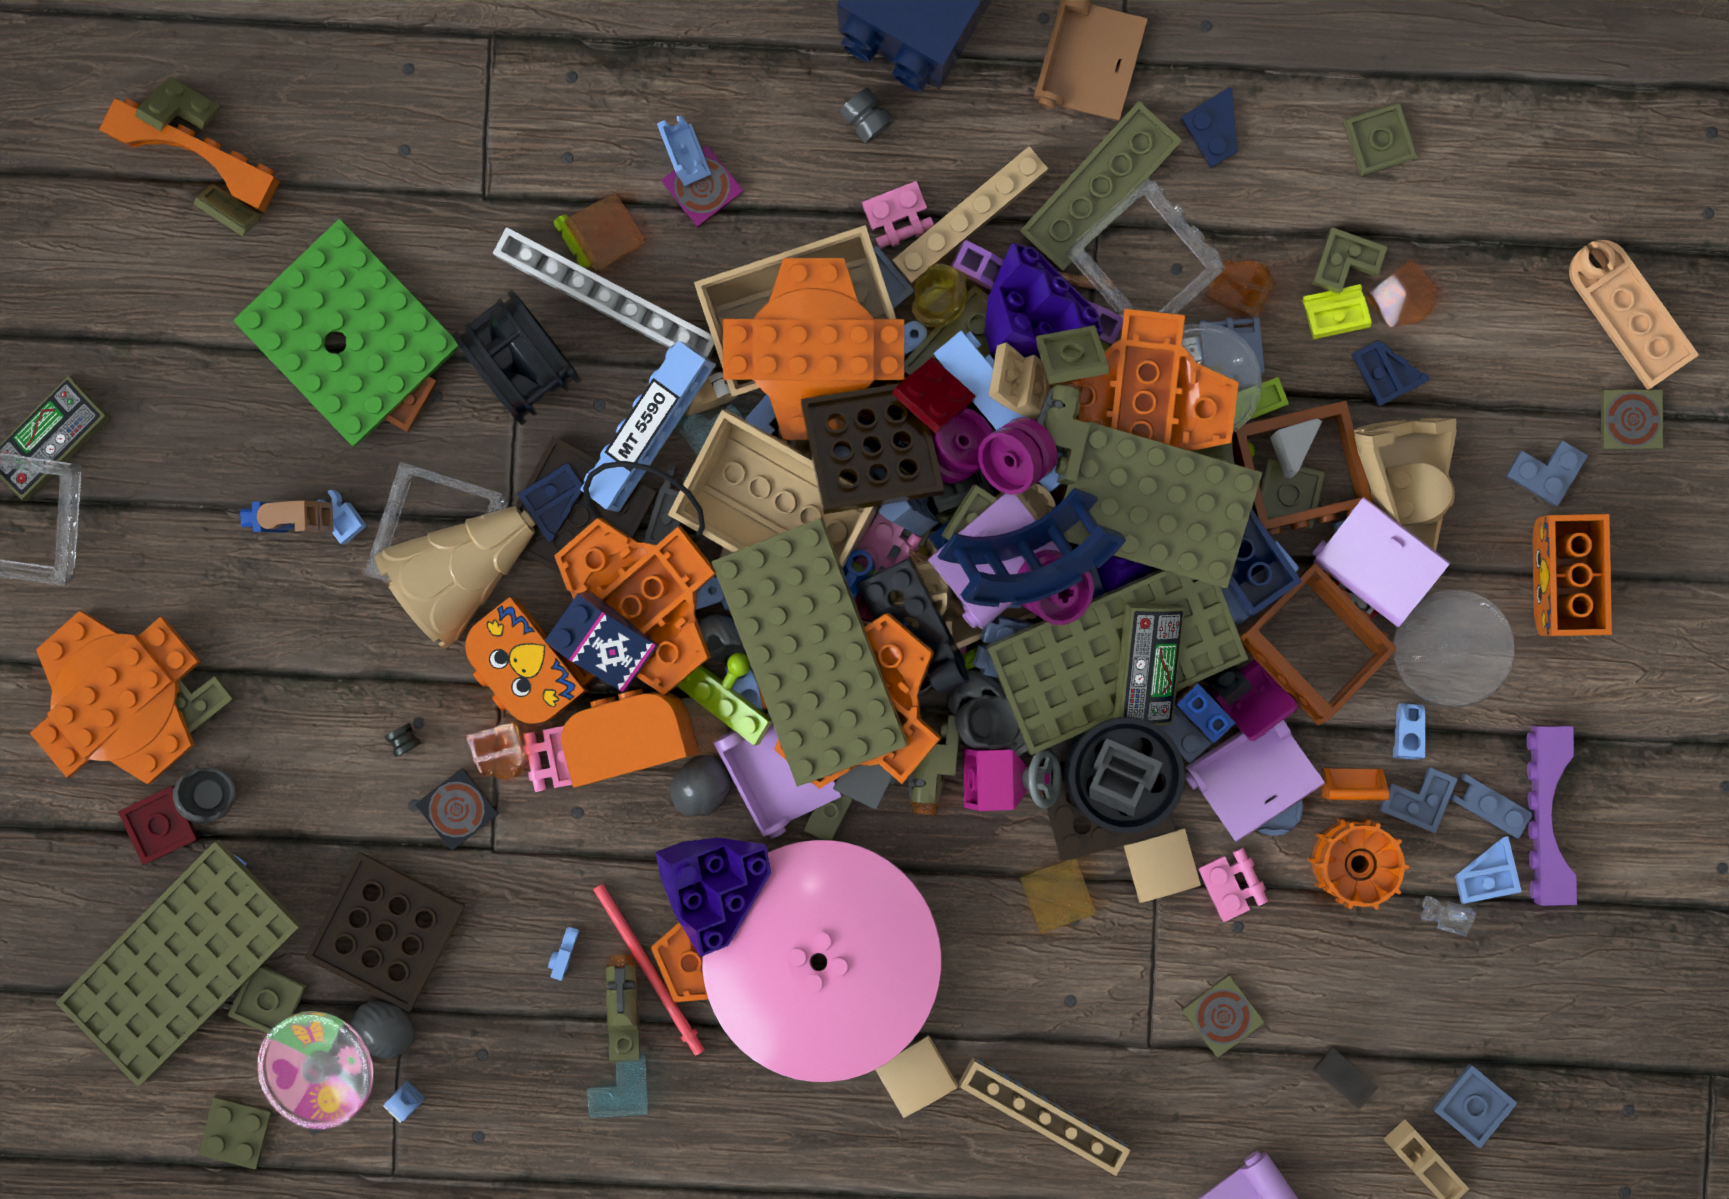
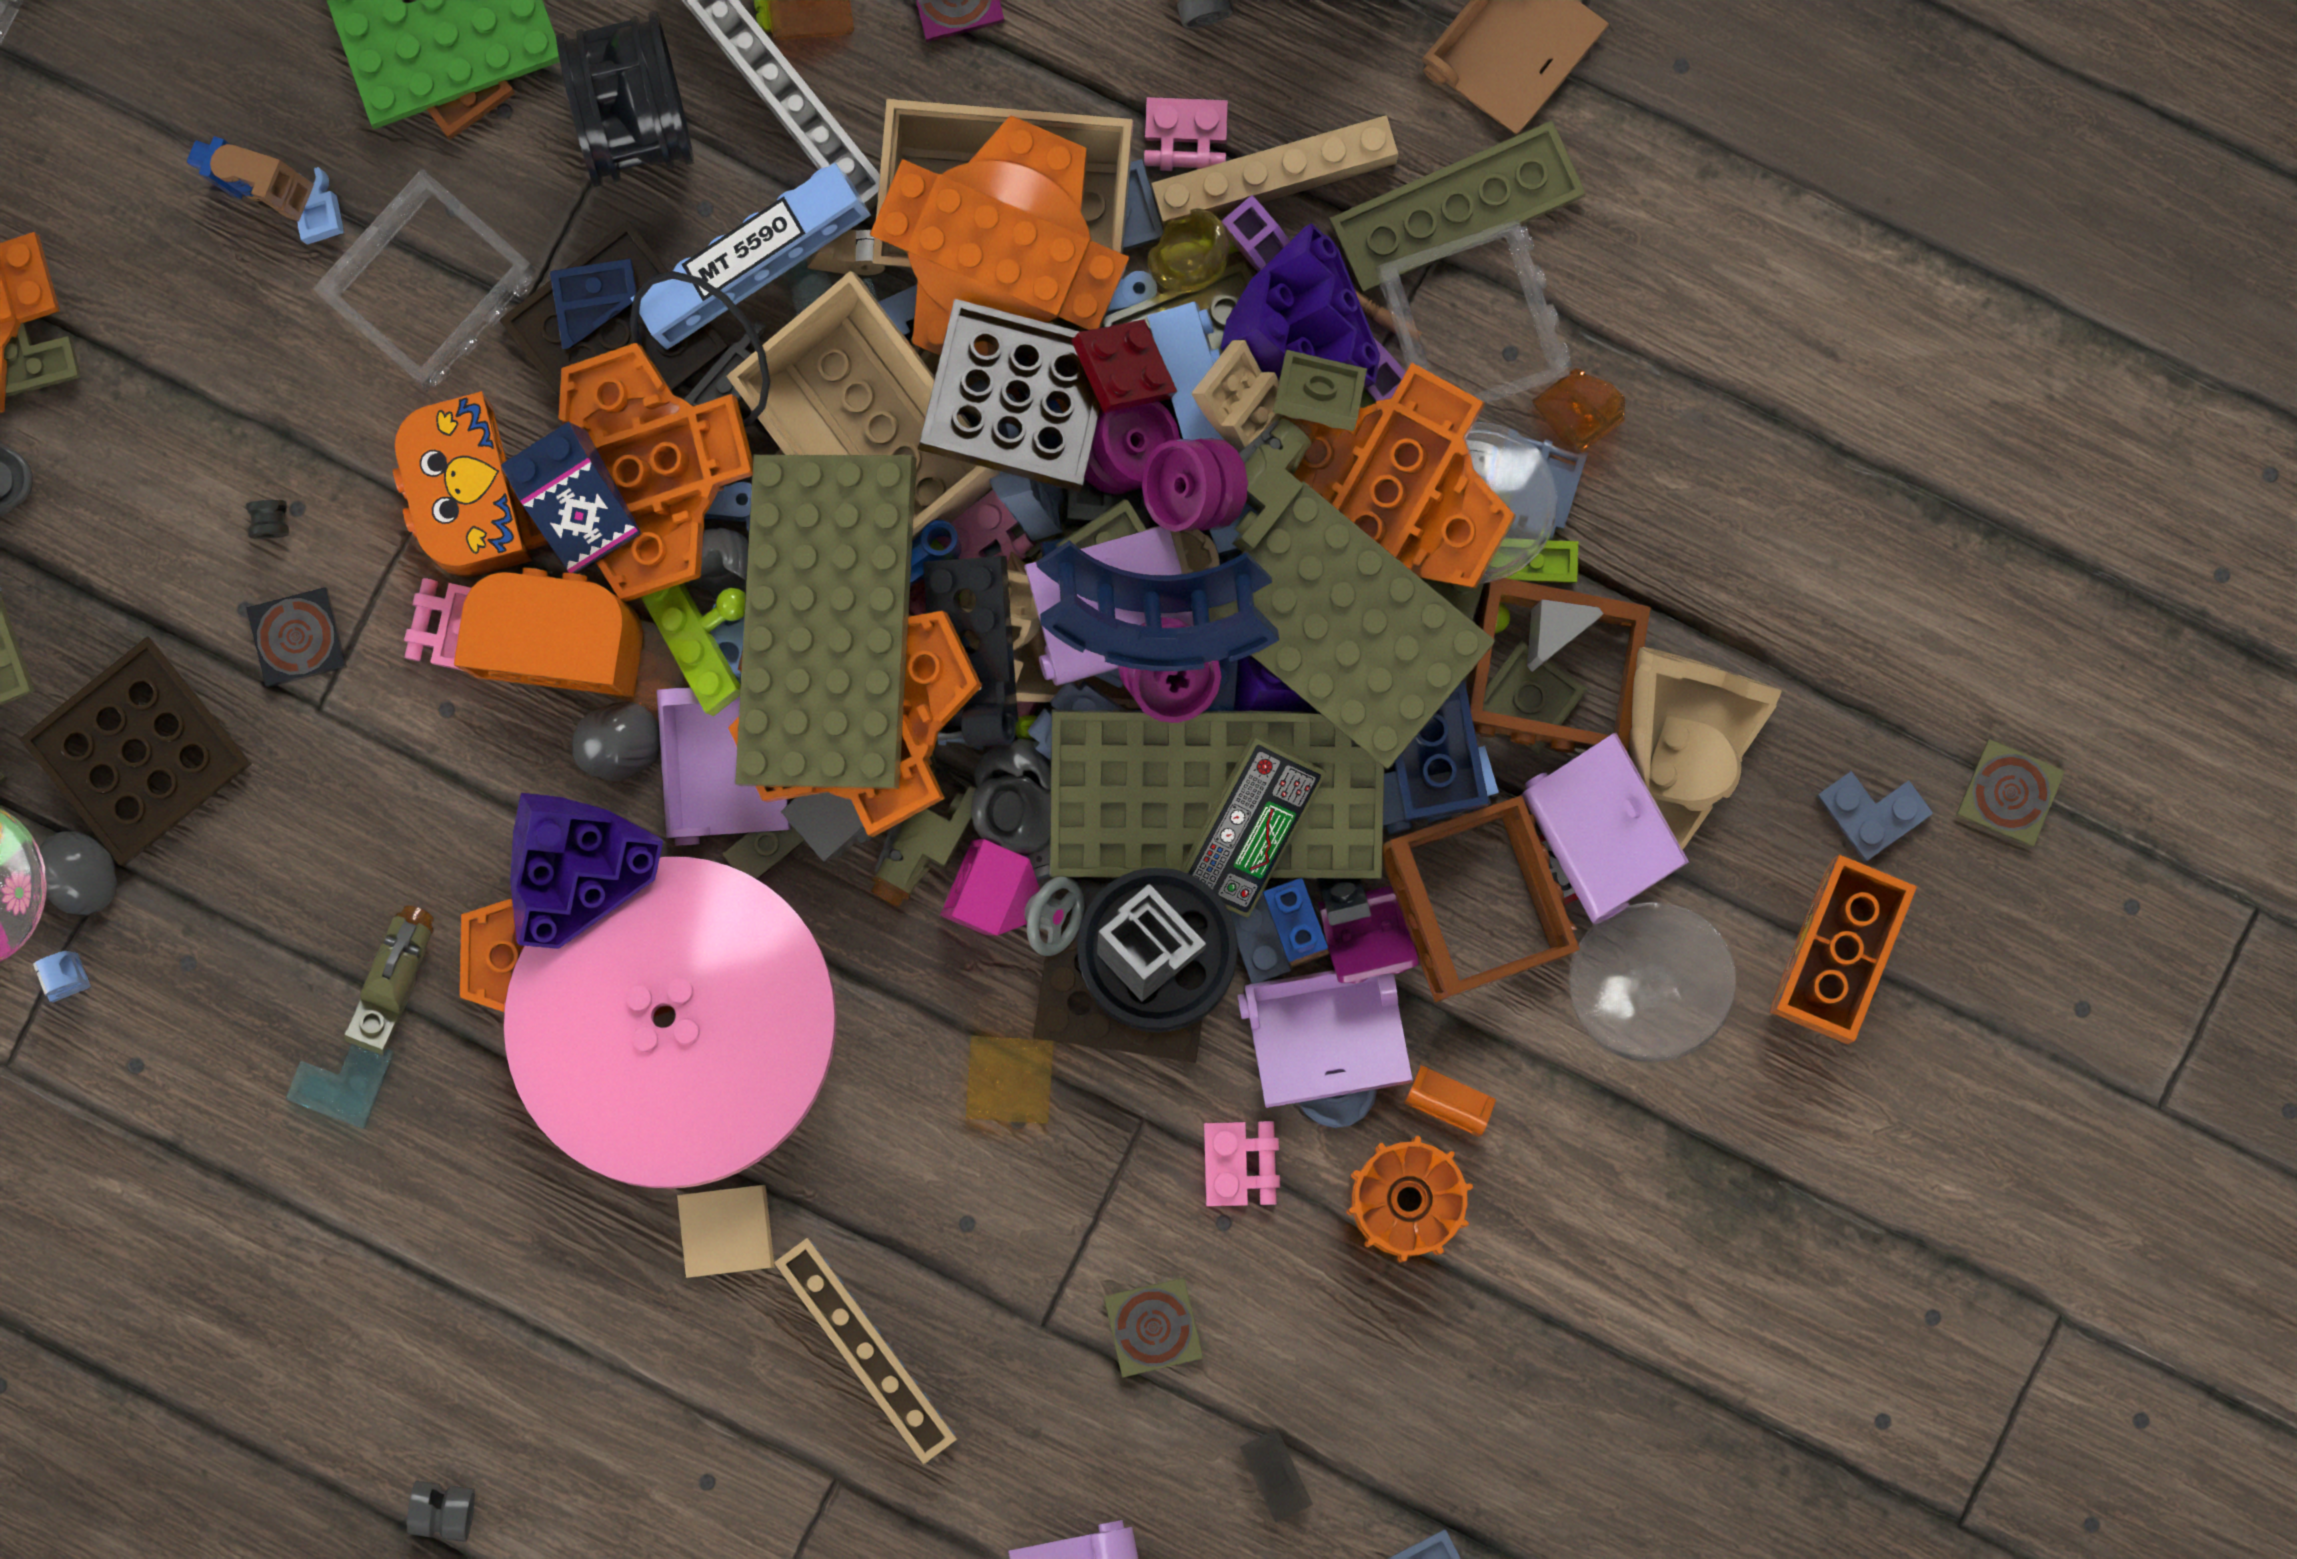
camera: 30 degrees right, 5 degrees down
(454, 569) = (429, 332): tan cone -> none
(498, 751) = (380, 586): clear orange slope -> none
(560, 960) = (340, 884): light blue plate -> none
(649, 970) = (460, 1050): coral bar -> none
(1162, 865) = (1159, 1098): tan slope -> none
(1213, 128) = (1633, 196): dark blue wing -> none
(1337, 313) = (1689, 493): neon yellow plate -> none
(1345, 252) = (1733, 422): olive plate -> none
(1380, 139) = (1840, 301): olive tile -> none
(1386, 373) = (1719, 597): dark blue wing -> none
(1404, 296) = (1785, 510): clear orange slope -> none
(1409, 732) = (1551, 1067): light blue leg -> none
(1426, 806) = (1527, 1172): sand blue plate -> none
(1451, 918) = (1502, 1328): clear plate -> none
(1489, 875) = (1575, 1295): light blue wing -> none
(1493, 807) = (1617, 1211): sand blue hinge -> none
(1550, 753) = (1657, 1333): medium lavender arch -> none
(1630, 312) = (2065, 655): light nougat plate -> none

